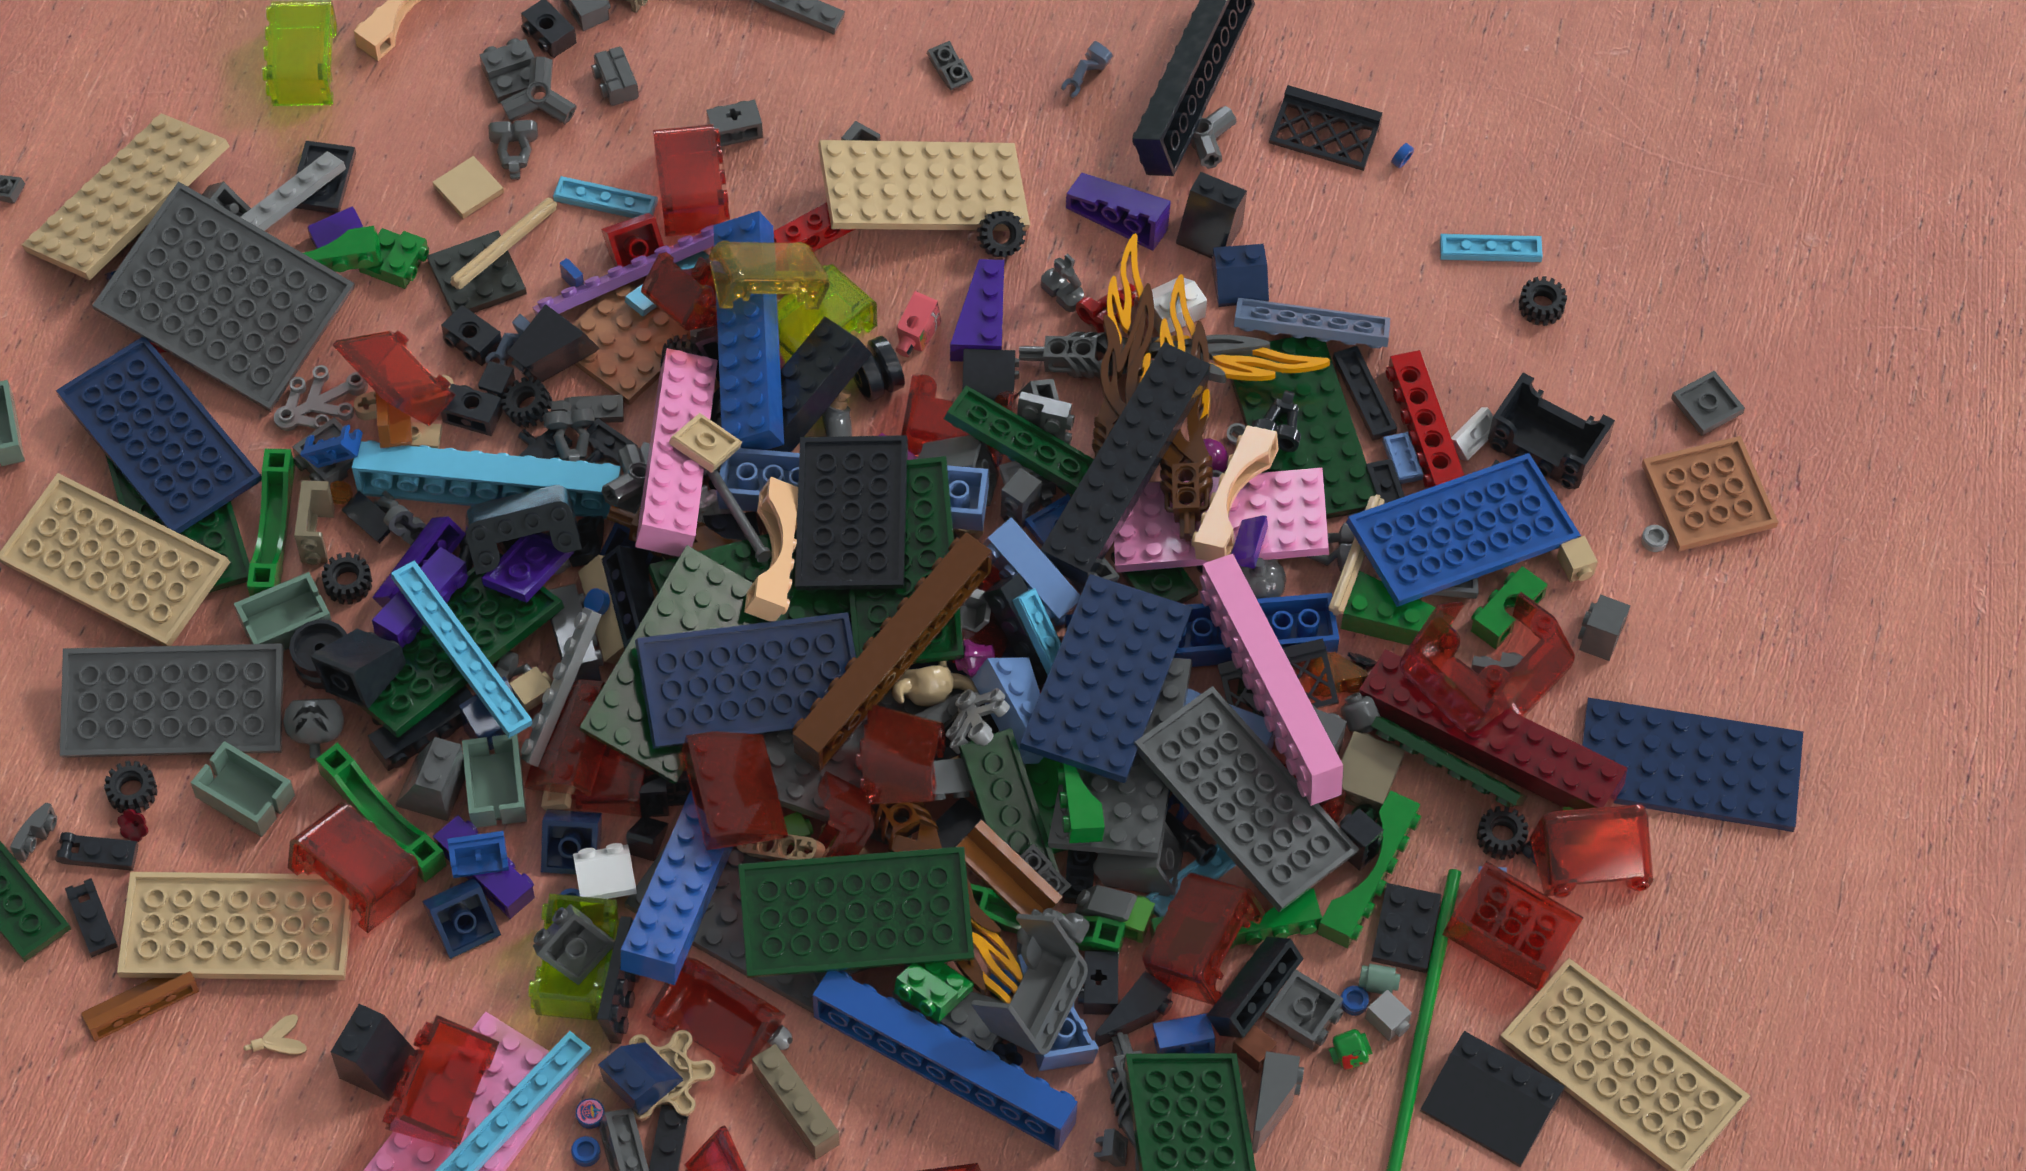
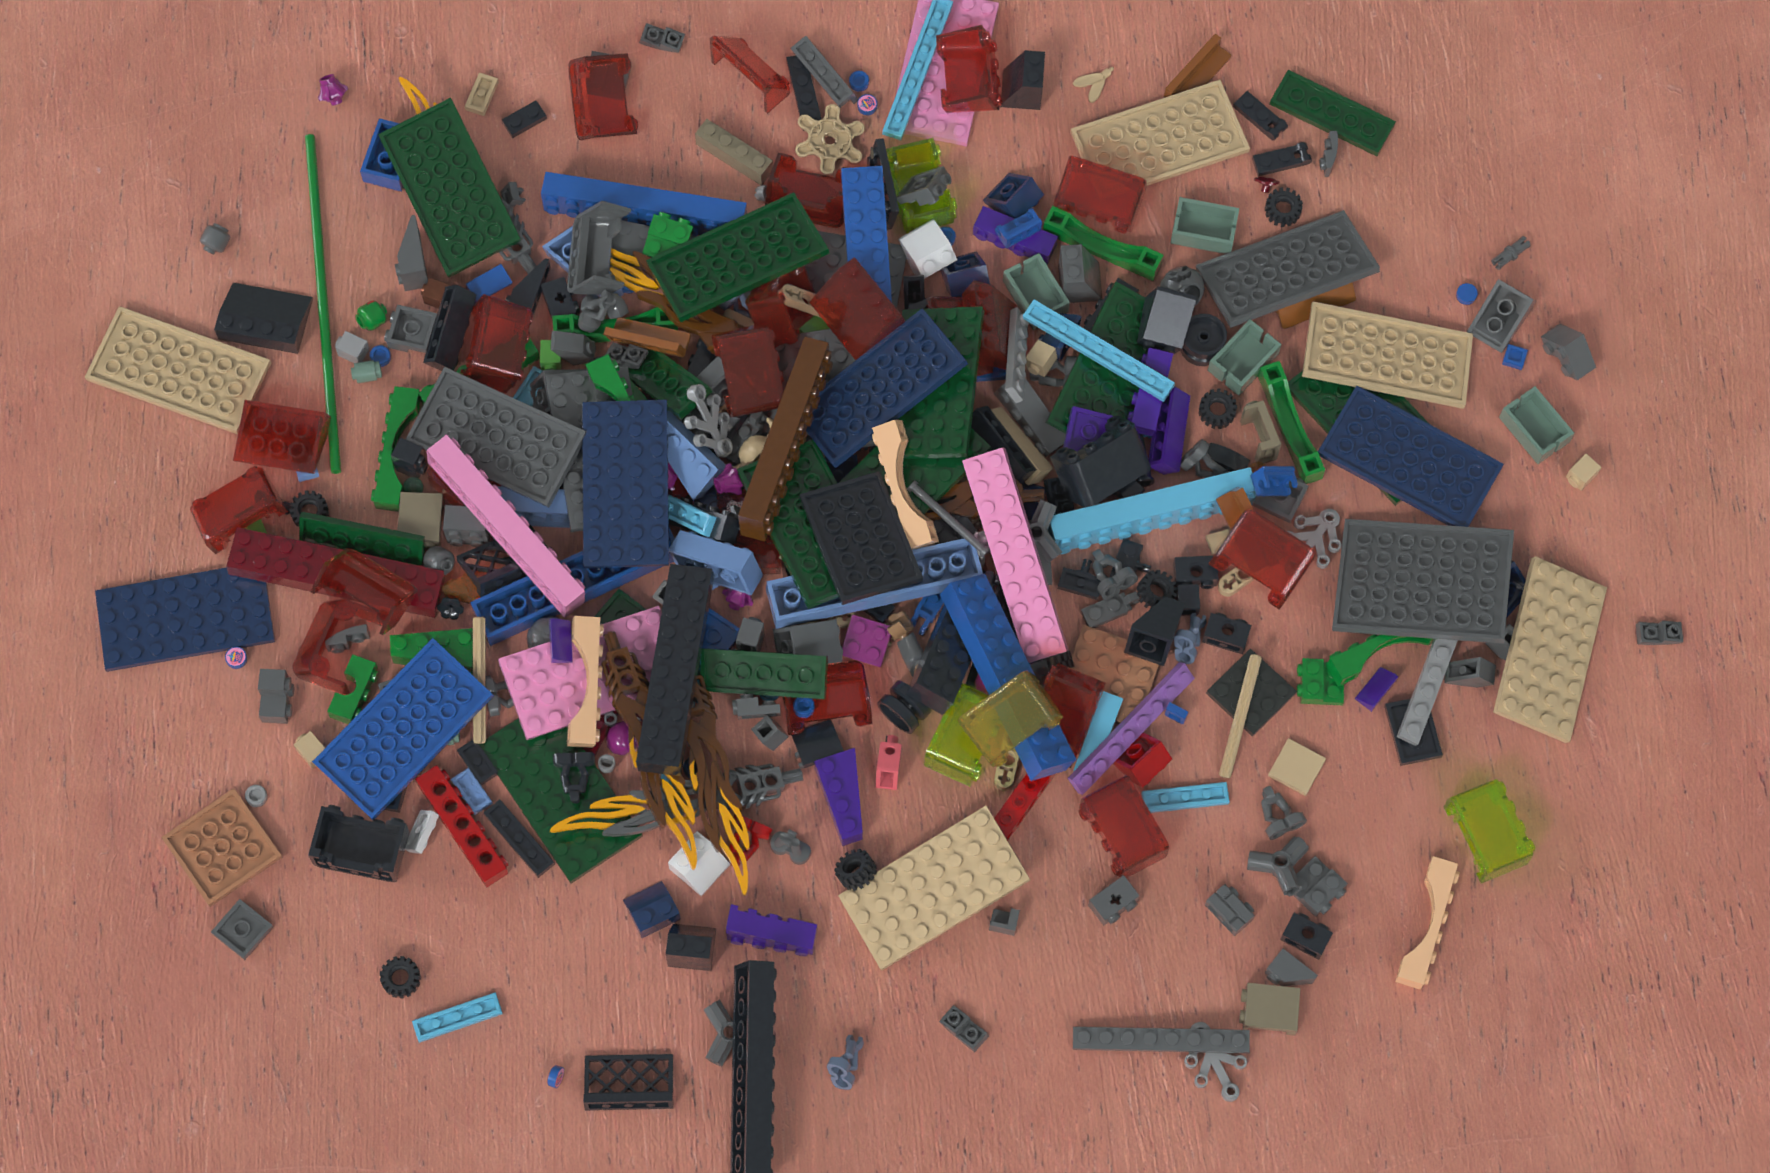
camera: 160 degrees right, 10 degrees up
(597, 600) = (1024, 437): blue tile -> none
(638, 1076) = (841, 125): dark blue slope -> none
(705, 442) = (993, 556): tan tile -> none
(1312, 322) = (578, 880): sand blue plate -> none
(1406, 927) = (359, 420): black plate -> none
(1639, 694) = (236, 657): none -> tile

